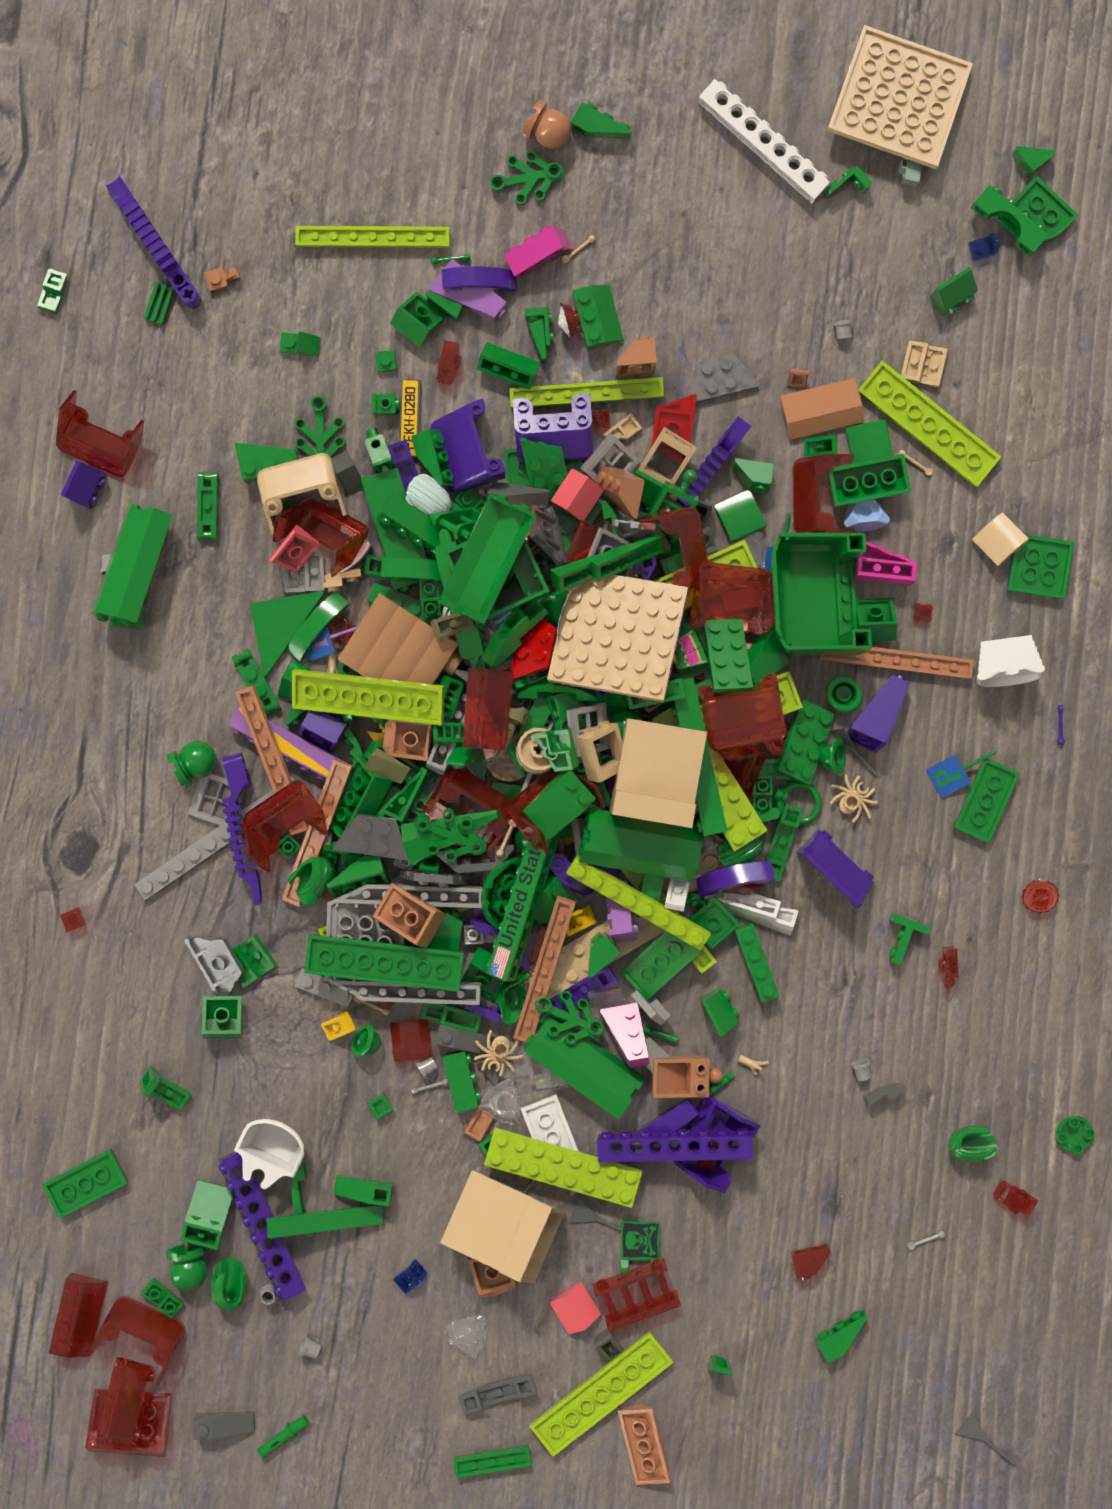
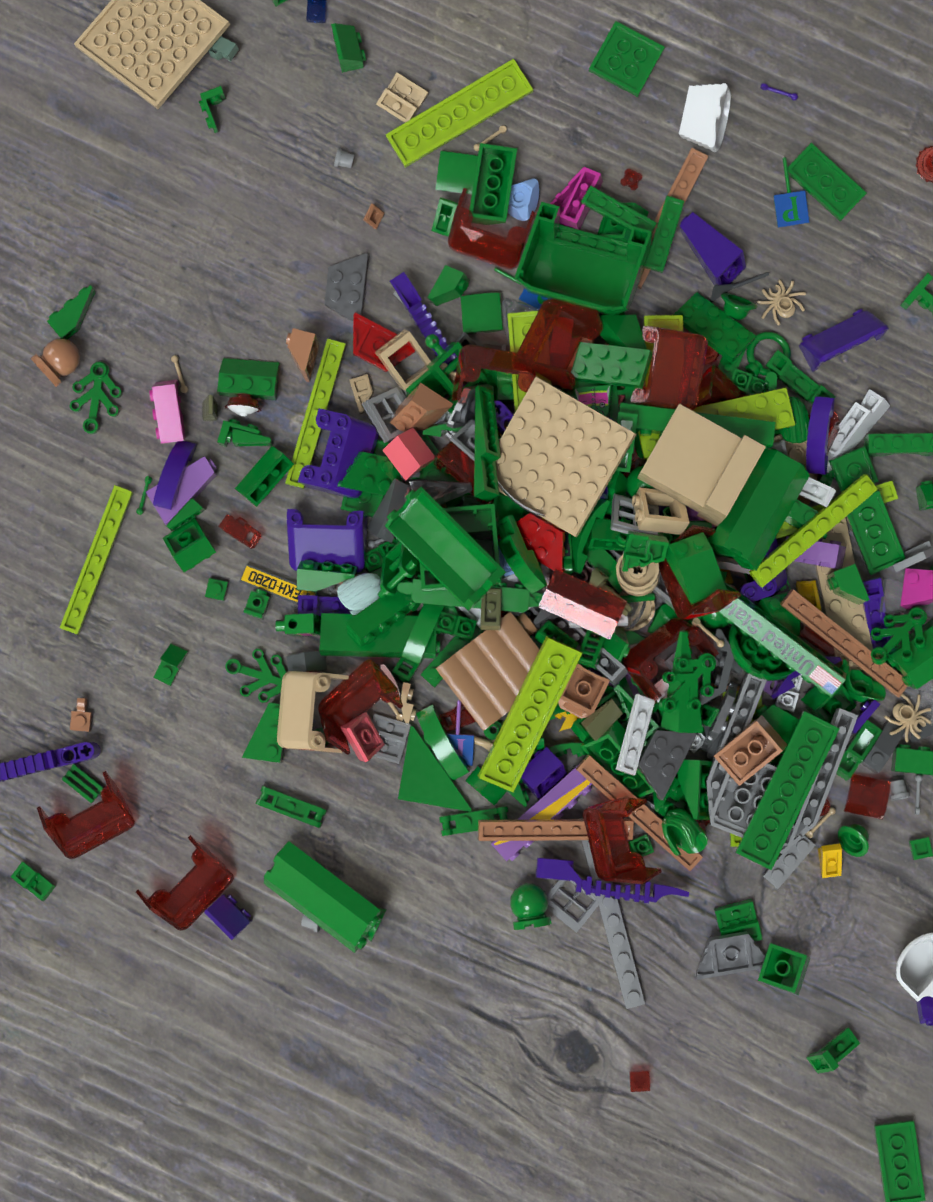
camera: 70 degrees left, 5 degrees down
(122, 326) = (92, 826): none -> clear red windscreen
(384, 802) = (635, 734): none -> white tile
(554, 291) = (209, 409): none -> olive slope
(605, 418) = (344, 404): clear red plate -> none
(737, 126) = (155, 172): white brick -> none
(822, 408) = (409, 204): nougat slope -> none
(844, 694) = (682, 275): green hat -> none
(879, 663) = (664, 234): none -> green tile
(882, 609) = (616, 210): none -> green tile
(1000, 539) = (589, 85): tan slope -> none

